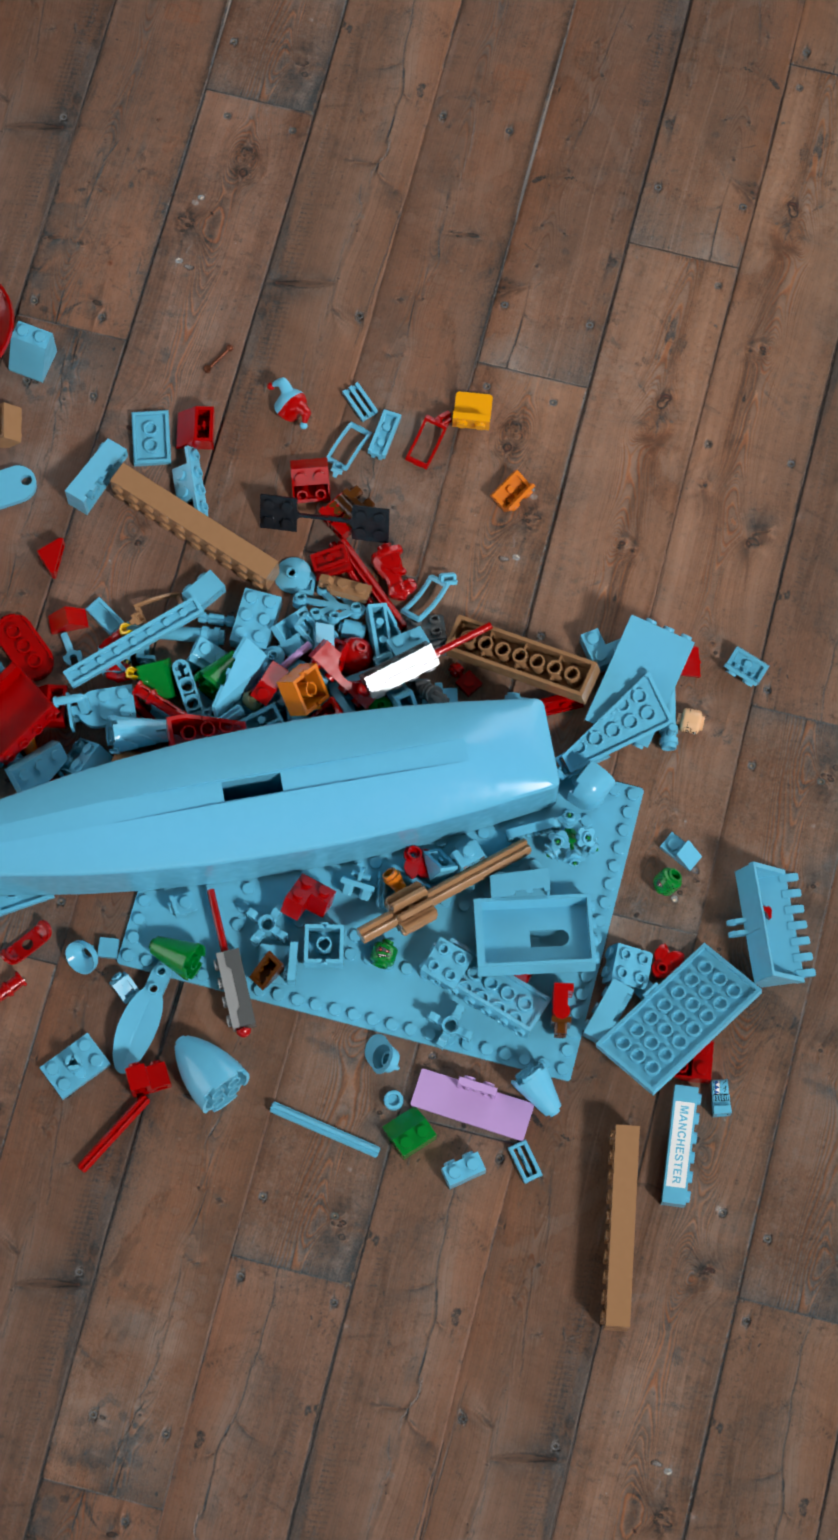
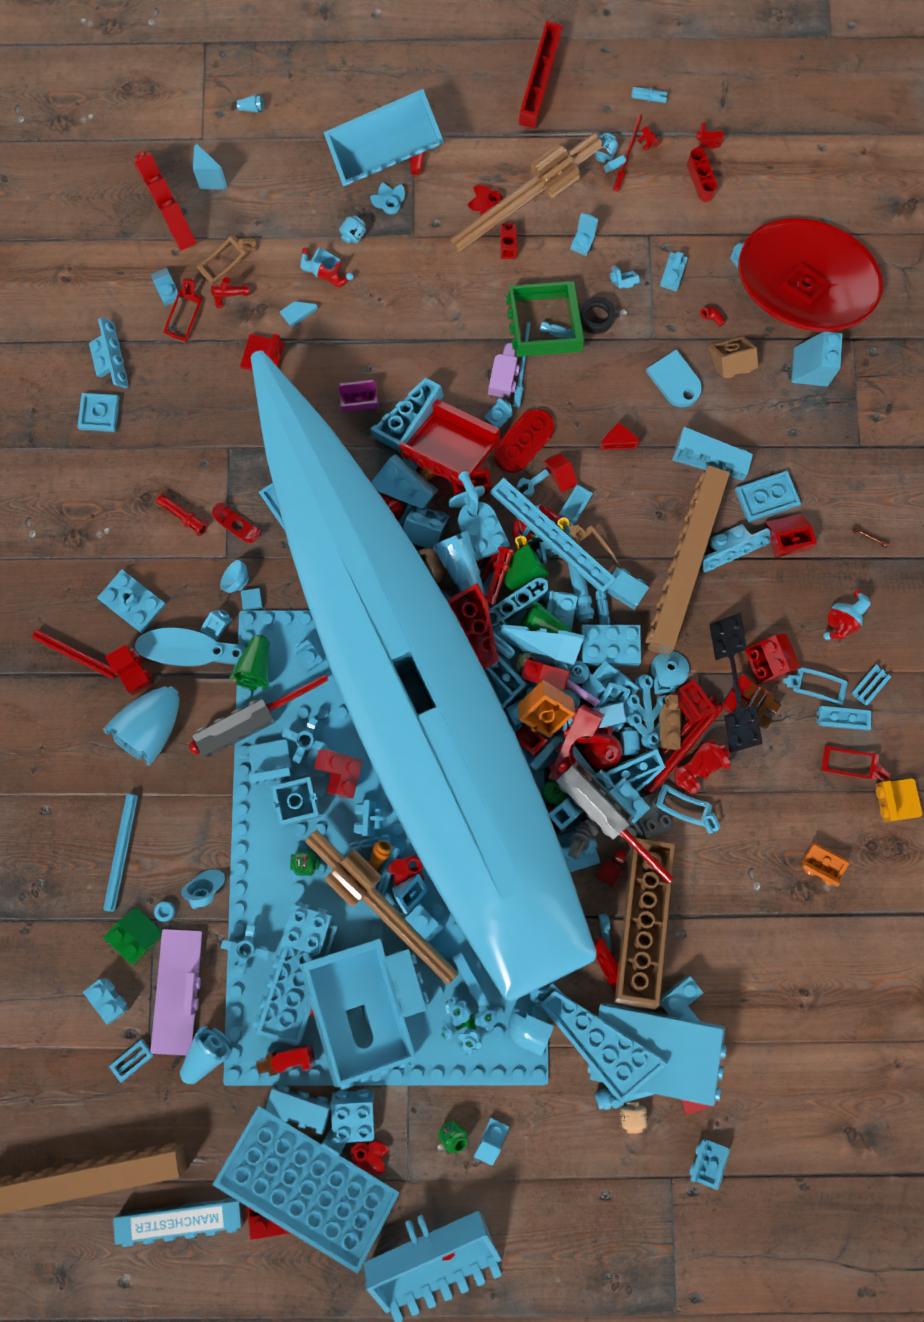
camera: 75 degrees right, 5 degrees up
(267, 971) = (257, 753): reddish brown slope -> none
(720, 1098) = (238, 1252): medium azure leg -> none

